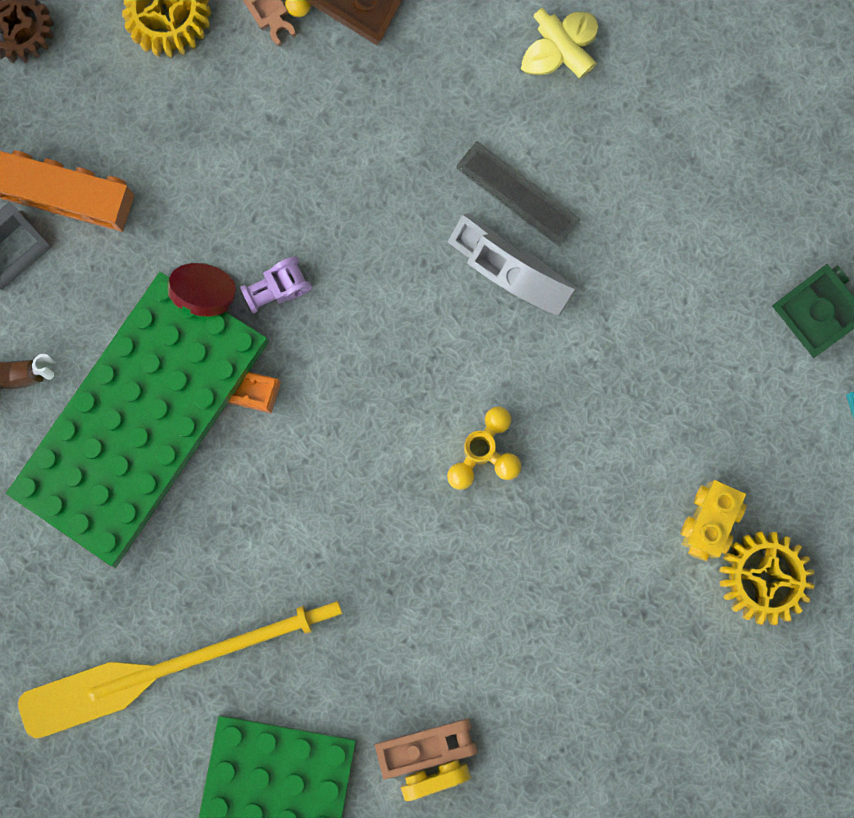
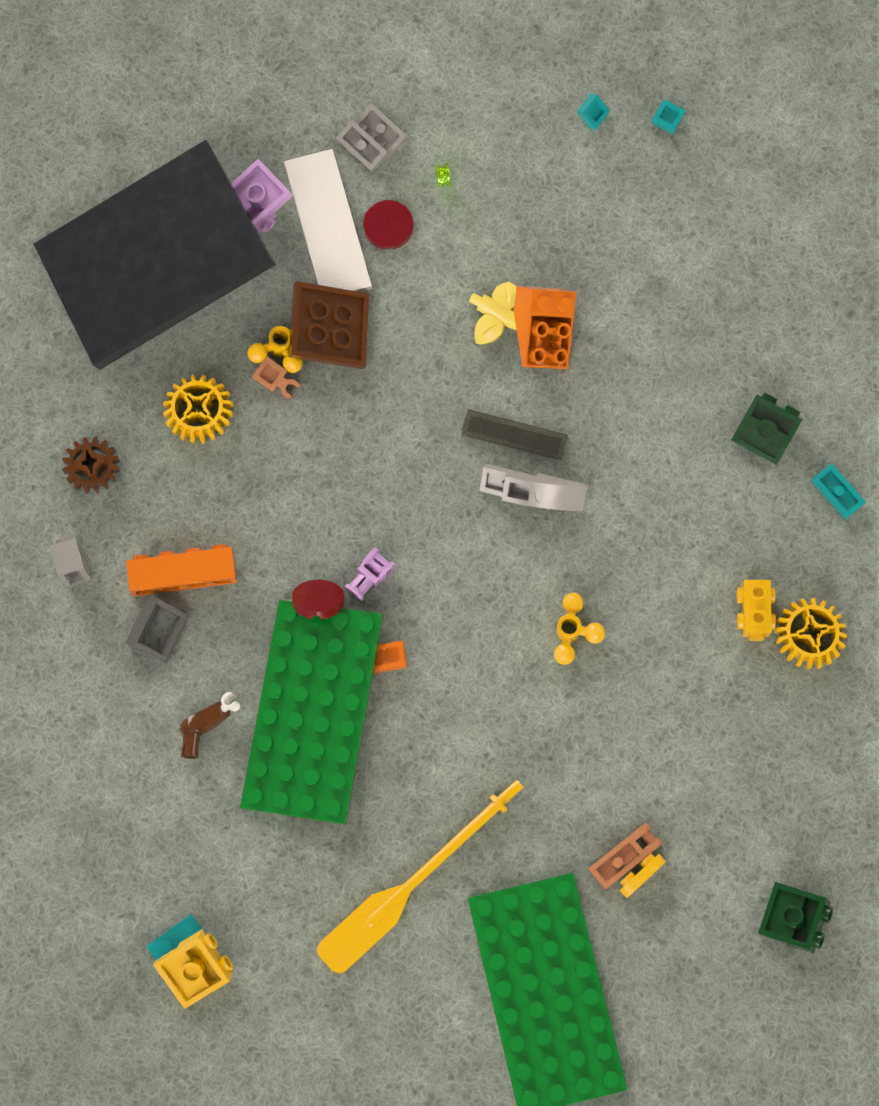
camera: 25 degrees left, 5 degrees down
(608, 79) = (544, 326): none -> orange slope

